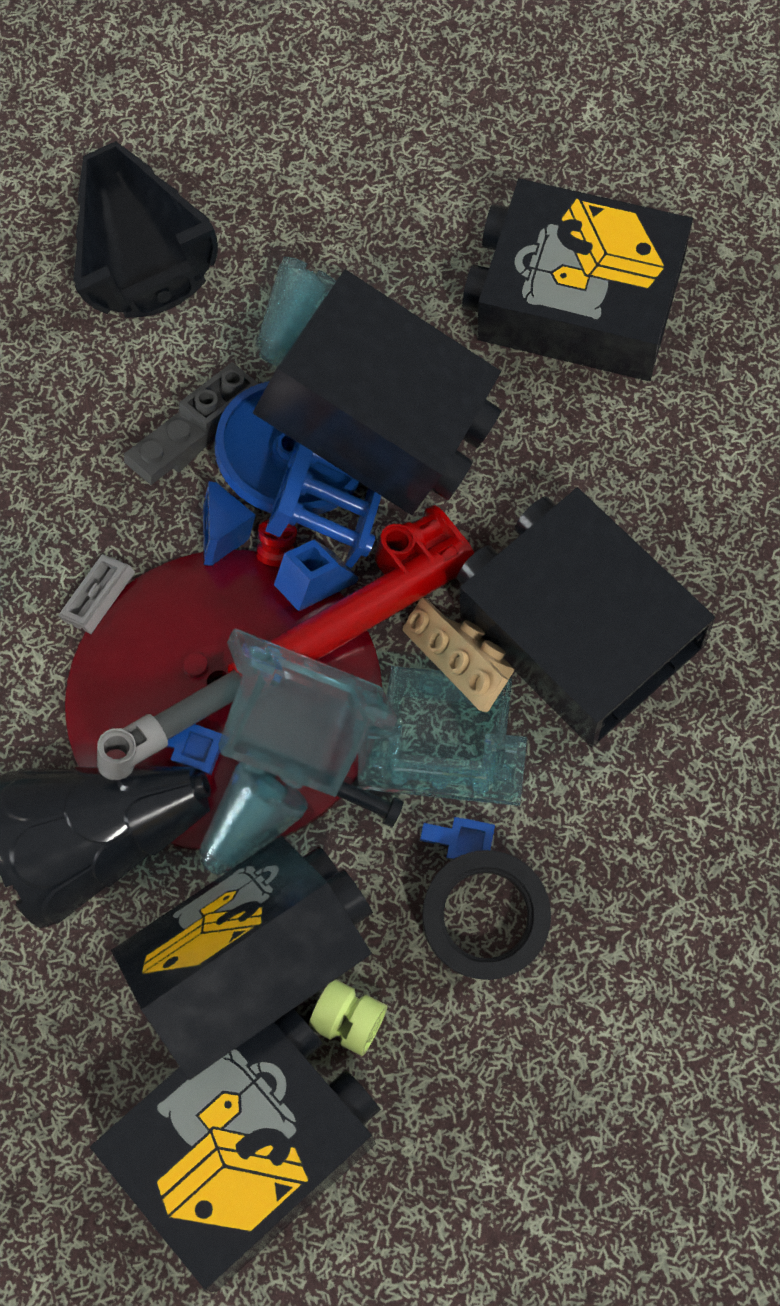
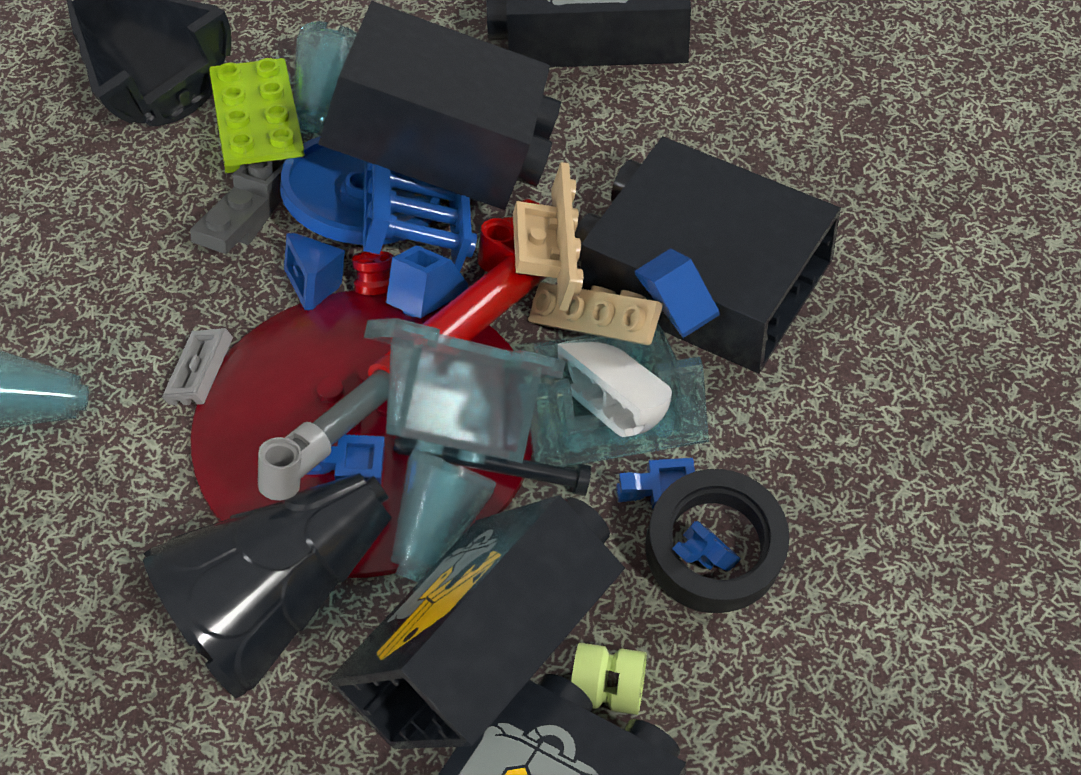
camera: 20 degrees left, 15 degrees down
(218, 339) = (255, 112): none -> lime bracket
(432, 566) = (547, 239): none -> tan bracket
(447, 739) = (615, 387): none -> white brick
(476, 917) = (706, 548): none -> blue plate
(527, 666) = (678, 285): none -> blue slope

